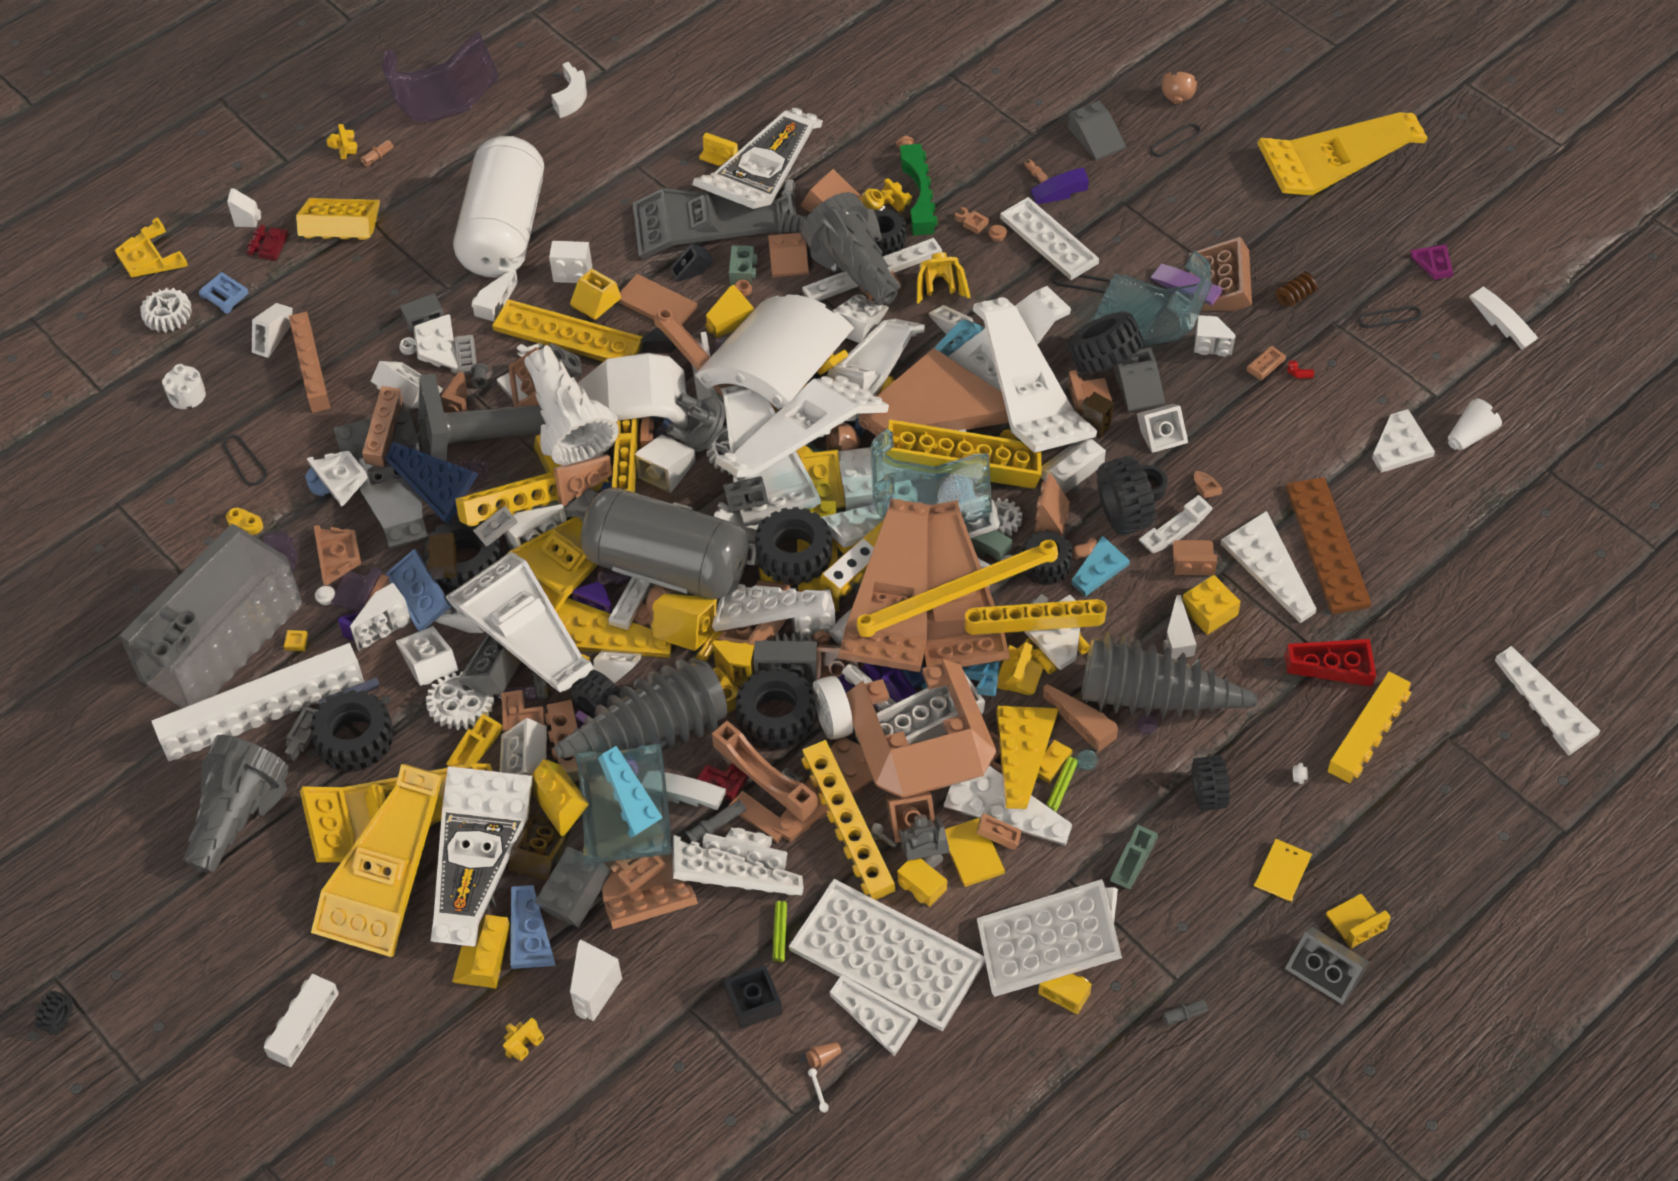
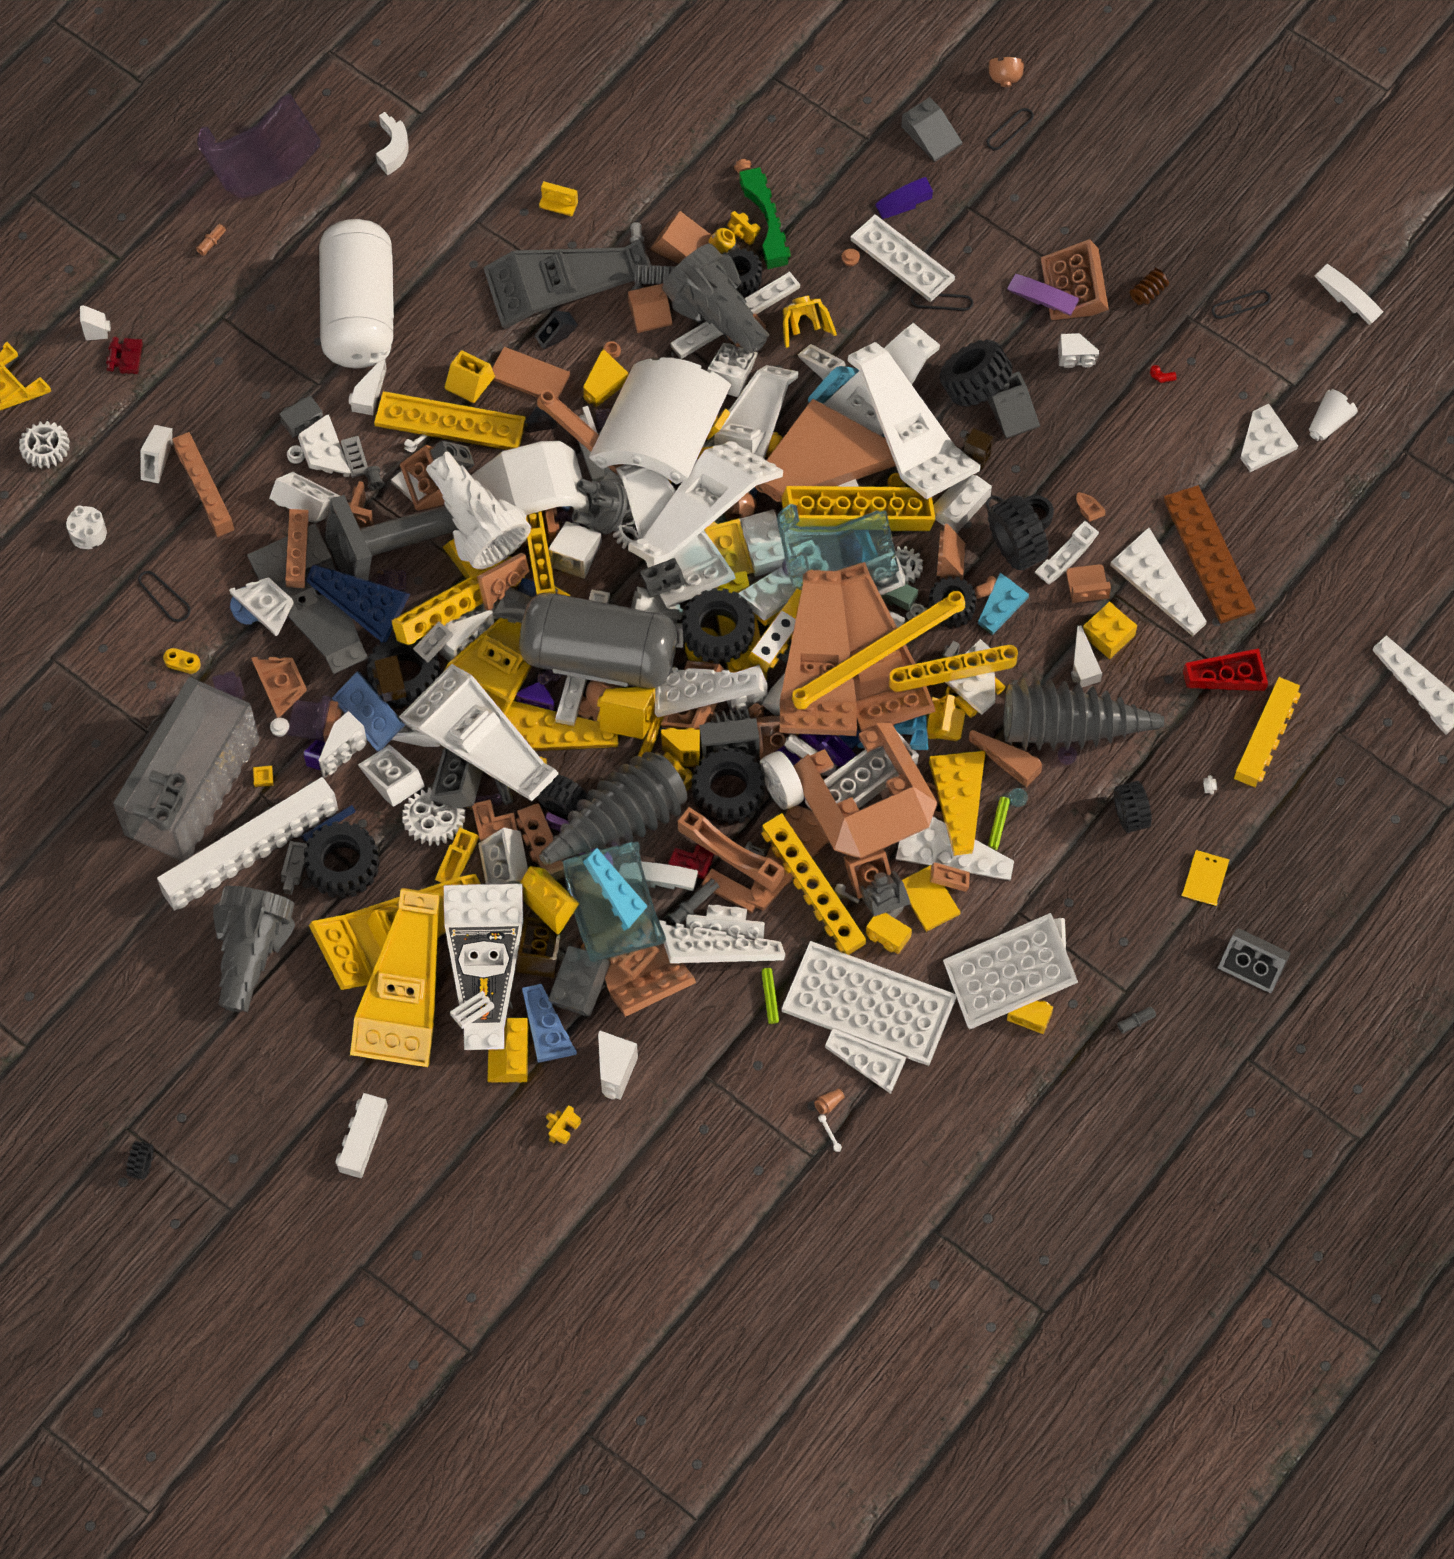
camera: 10 degrees left, 10 degrees up
(227, 288) = (100, 413): medium blue plate -> none
(337, 218) = (190, 319): yellow slope -> none
(343, 141) = (170, 231): yellow hips -> none
(445, 896) = (472, 1003): none -> white tile
(569, 260) = (437, 343): white brick -> none
(615, 664) = (571, 761): white slope -> none
(742, 264) = (606, 325): sand green brick -> none
(753, 996) = (759, 1059): black brick -> none
(762, 164) = (604, 210): white wing -> none
(973, 221) = (826, 247): nougat plate -> none
(1036, 171) = (878, 183): nougat piece -> none
(1053, 761) = (988, 801): yellow plate -> none
(1081, 389) = (963, 422): nougat bracket -> none
(1134, 857) = (1073, 884): sand green slope -> none
(1160, 312) = (1023, 329): clear light blue windscreen -> none
(1163, 427) = (1041, 452): white slope -> none
(1266, 363) = (1129, 370): nougat plate -> none
(1327, 157) = (1159, 135): yellow wing -> none
(1357, 920) = (1276, 916): yellow bracket -> none
(1434, 261) = (1277, 238): magenta wing -> none

